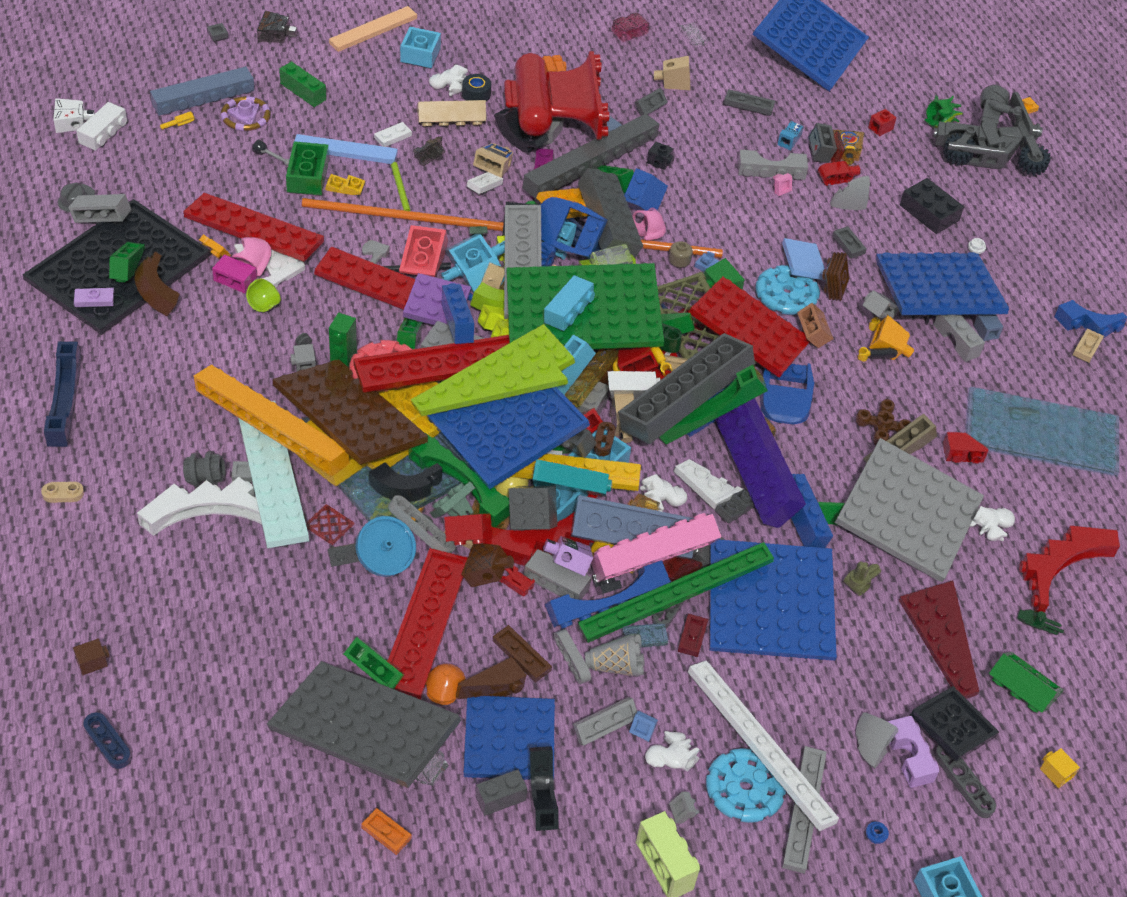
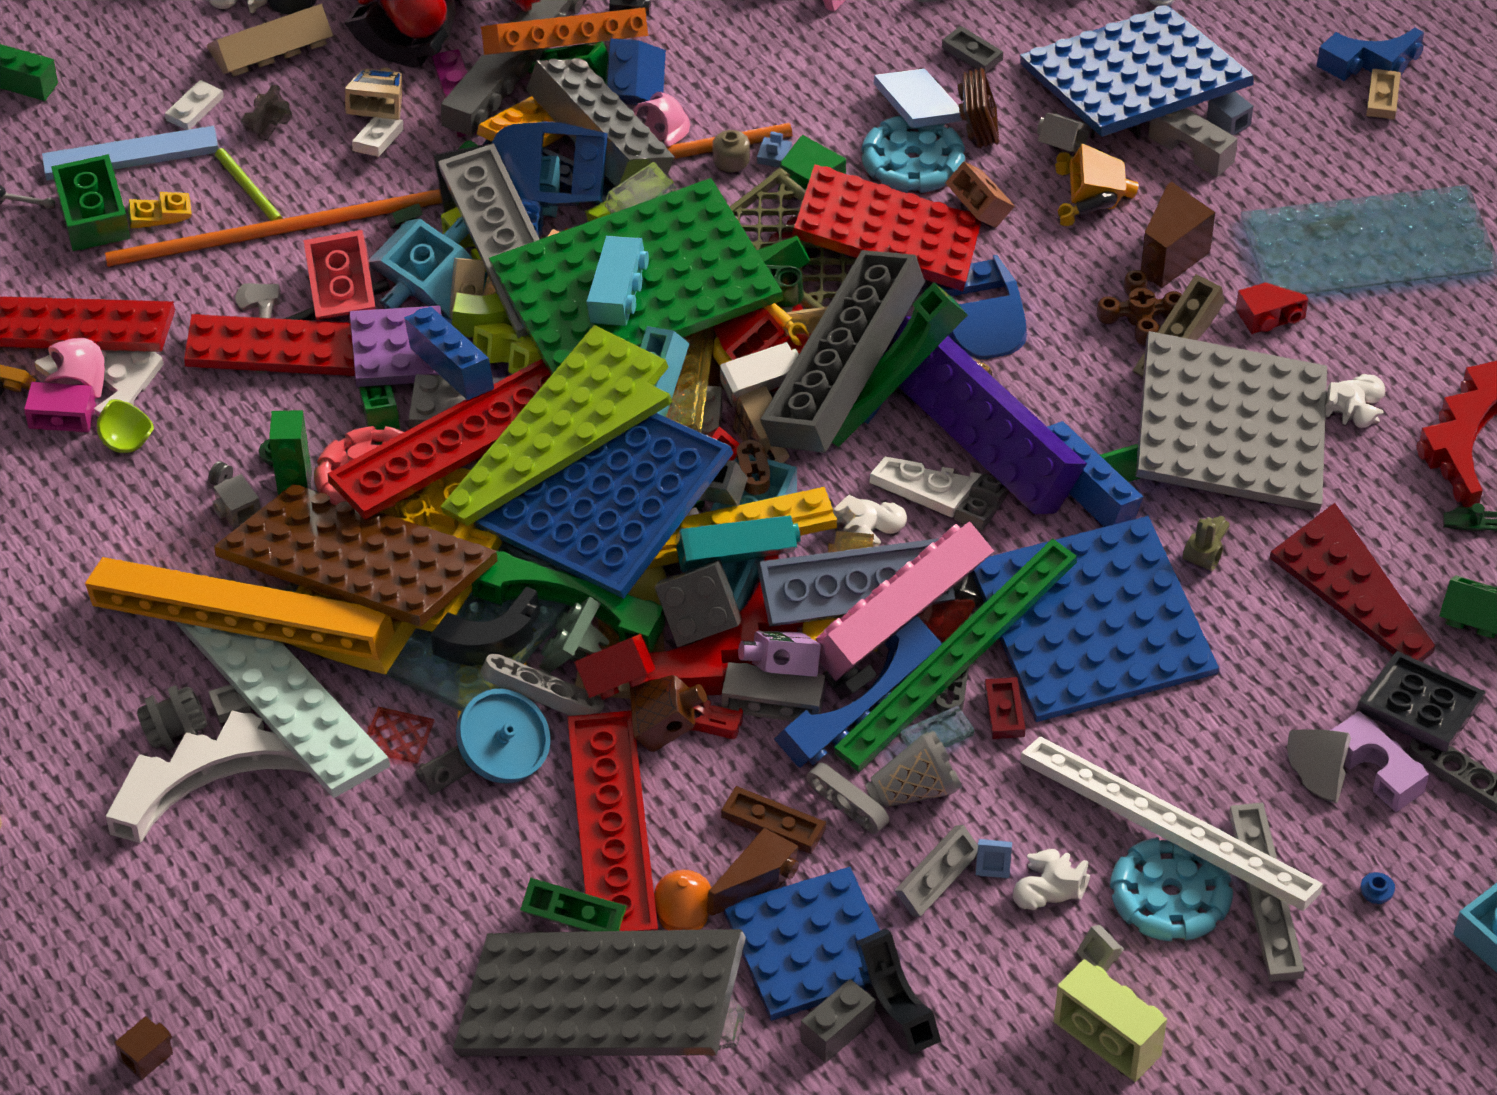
camera: 15 degrees left, 0 degrees up
(613, 156) = (564, 31): none -> orange brick
(922, 387) = (1176, 236): none -> reddish brown slope

